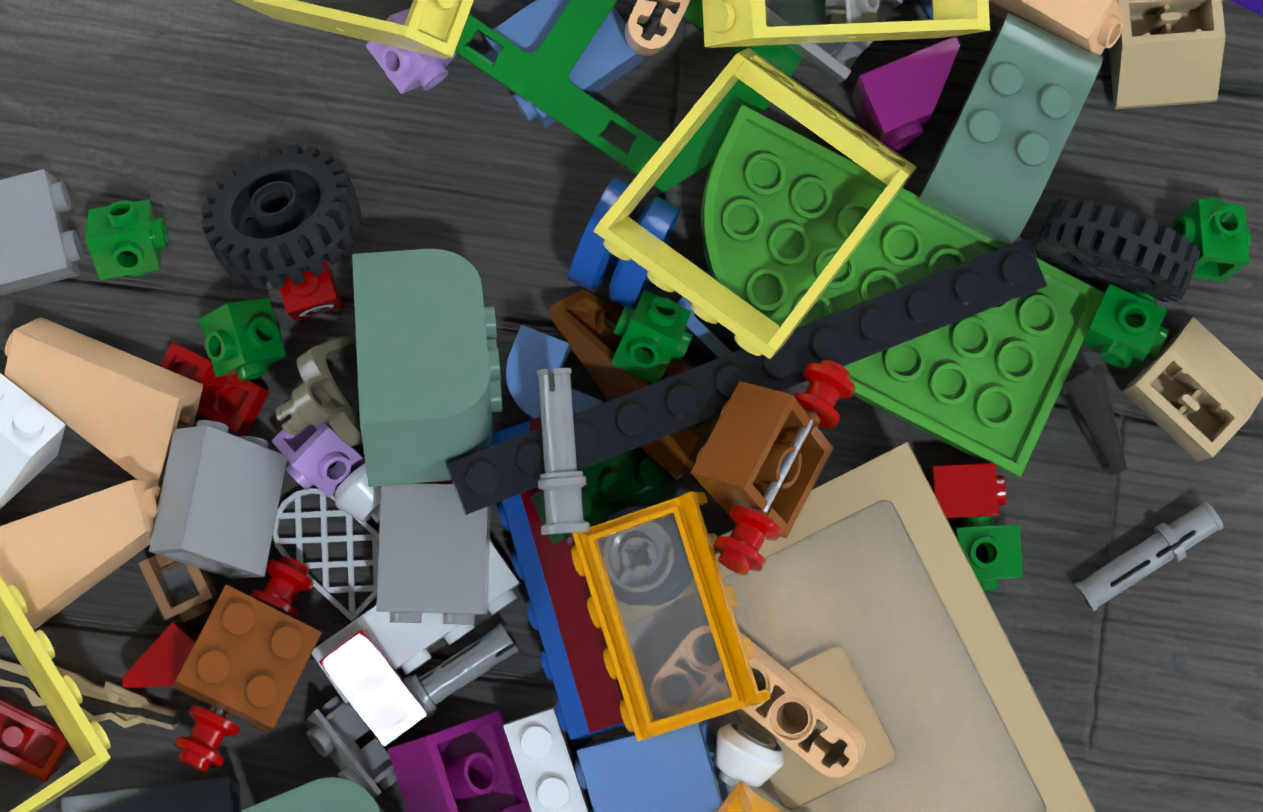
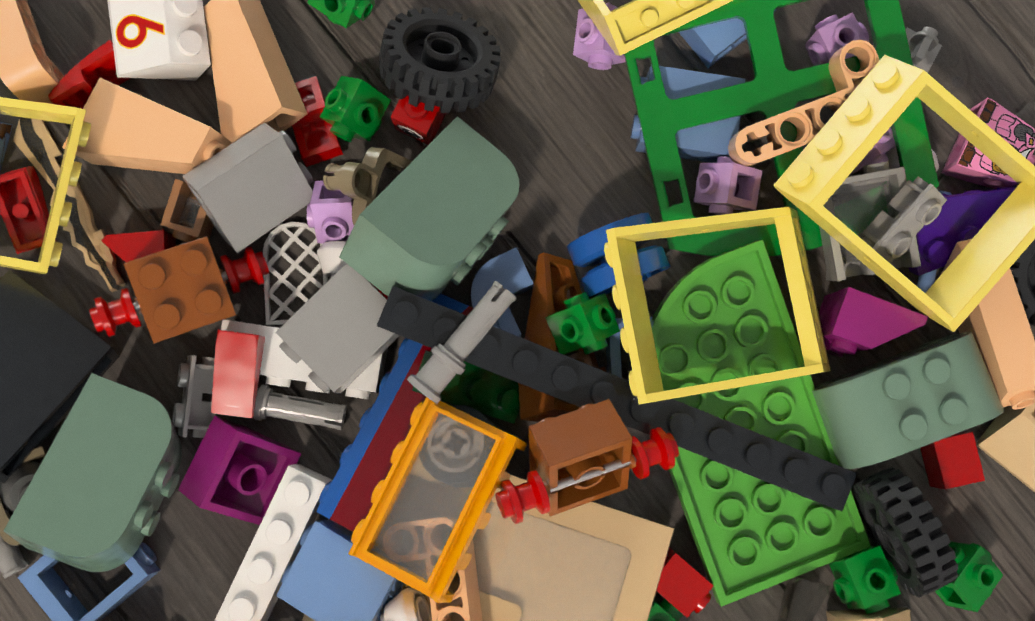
camera: 40 degrees right, 0 degrees up
(663, 83) = (727, 186): none -> lavender brick
(1103, 143) = (953, 461): none -> red brick

